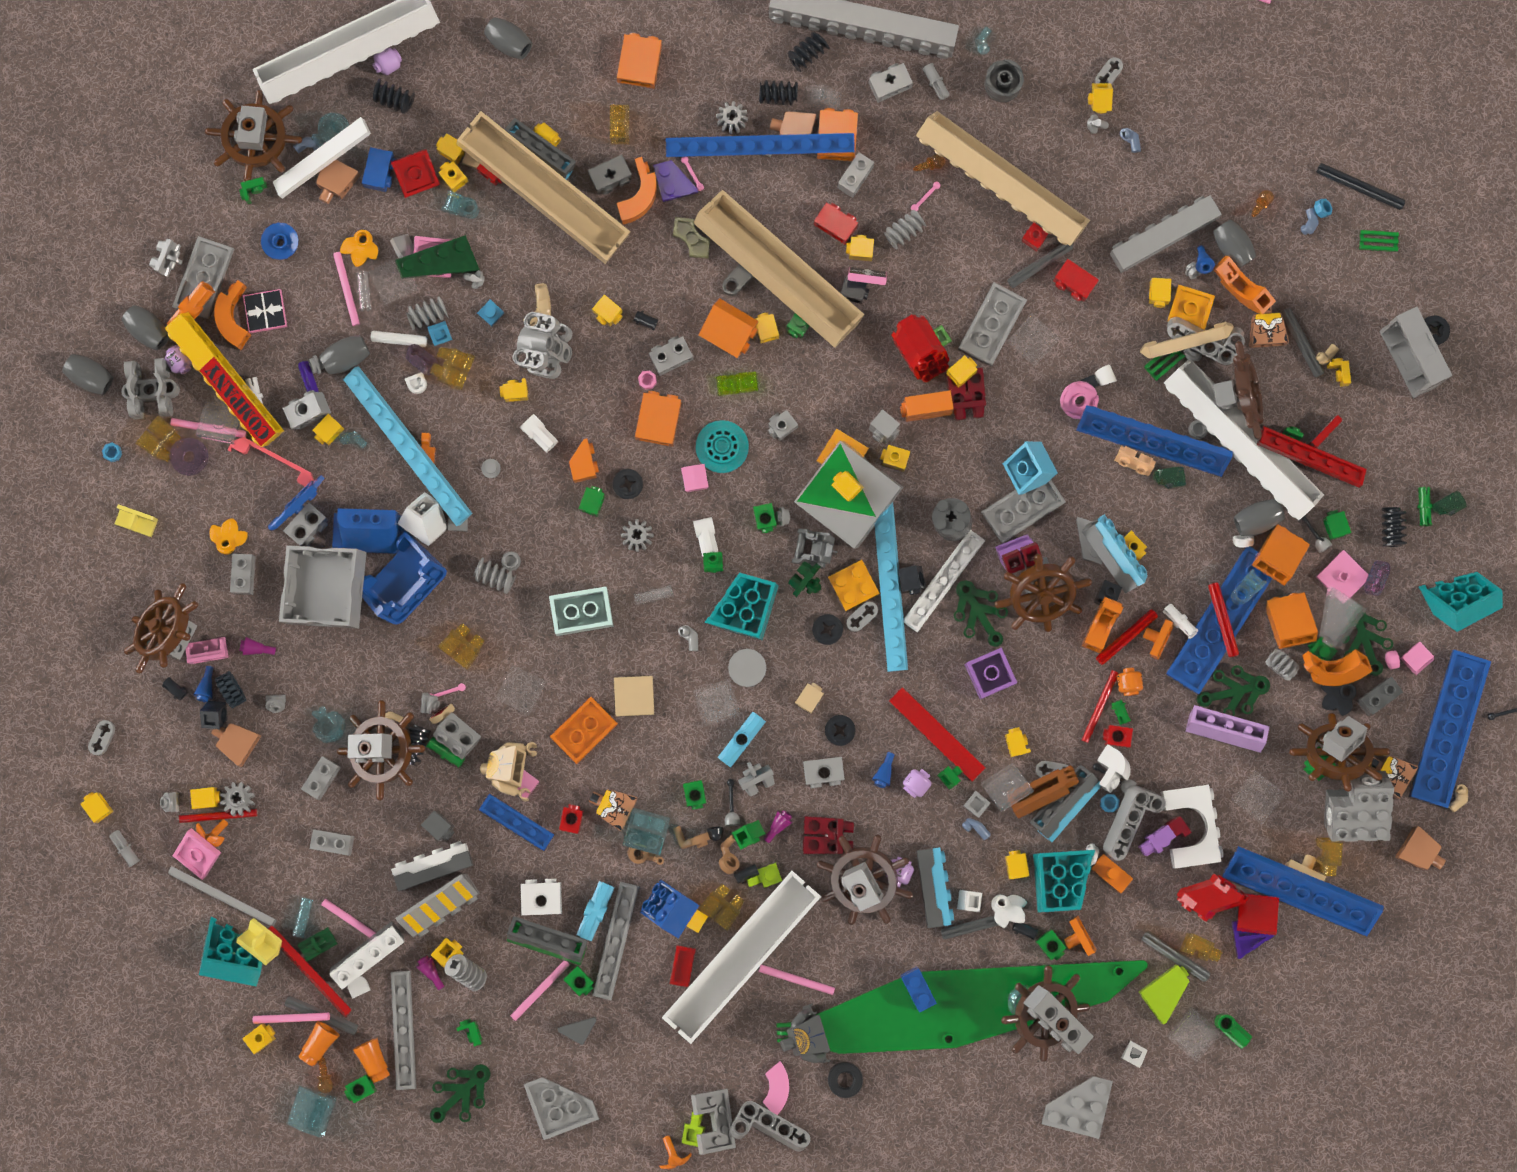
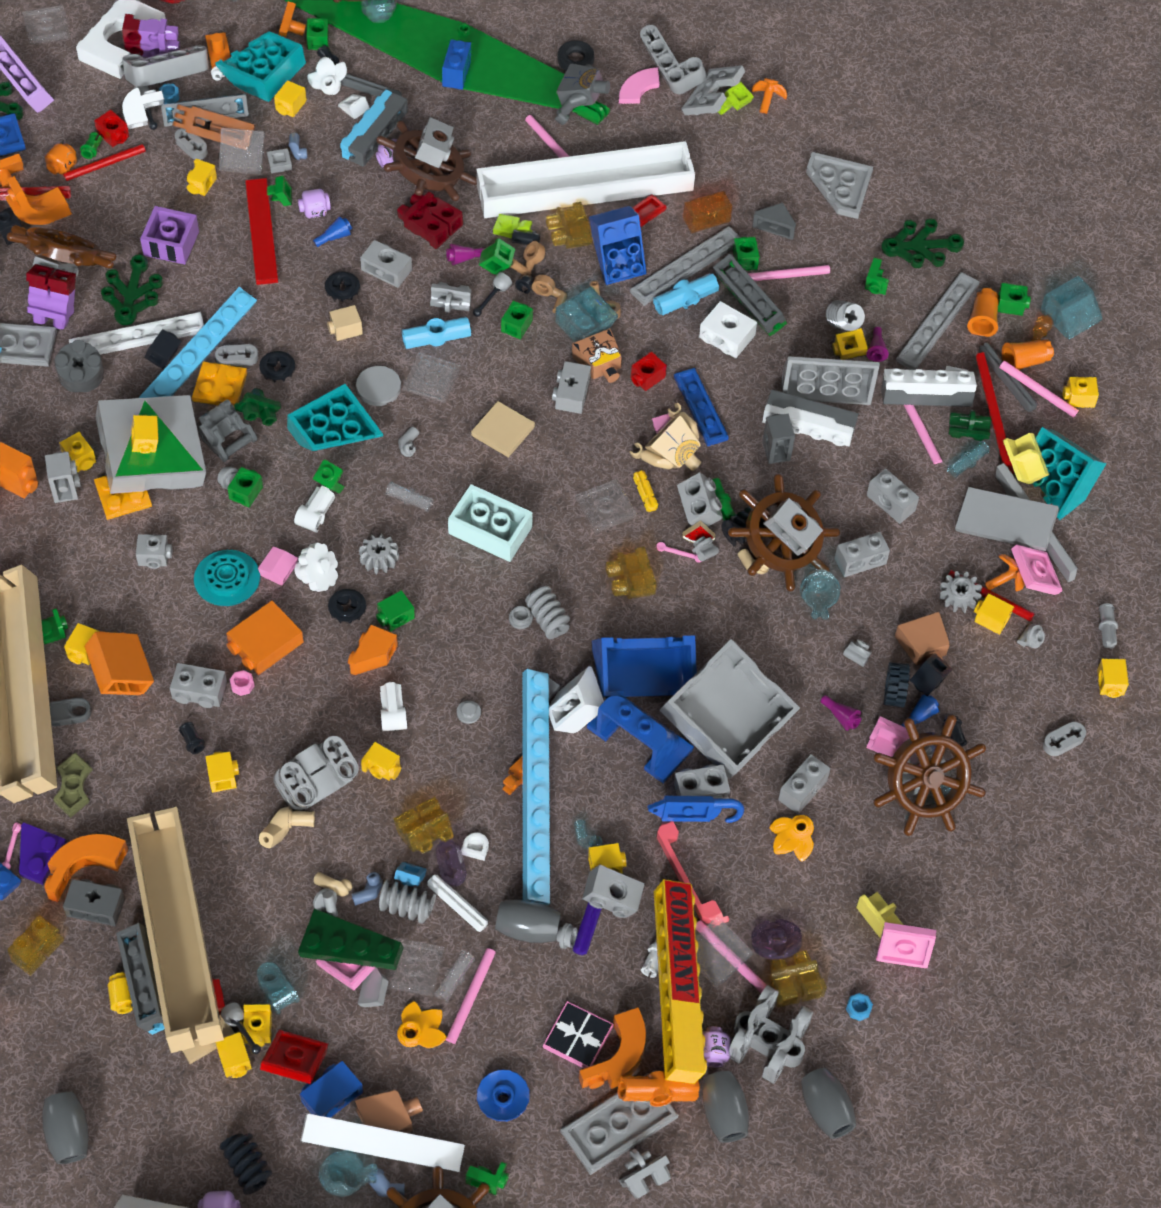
camera: 145 degrees left, 25 degrees down
(105, 506) = (906, 945): none -> bright pink tile
(241, 879) = (1007, 518): none -> light grey tile
(456, 307) = (370, 891): none -> sand blue arm
(468, 168) = (233, 1016): none -> hinge
(481, 291) = (341, 887): none -> tan arm
(490, 313) = (340, 859): dark azure plate -> none
(503, 722) = (645, 491): none -> yellow axle
(583, 730) = (574, 436): orange tile -> none
(611, 776) = (572, 387): none -> light grey brick
(633, 997) = (707, 212): none -> clear orange brick
(665, 490) = (317, 567): none -> white plant
(737, 383) = (158, 620): clear neon green slope -> none

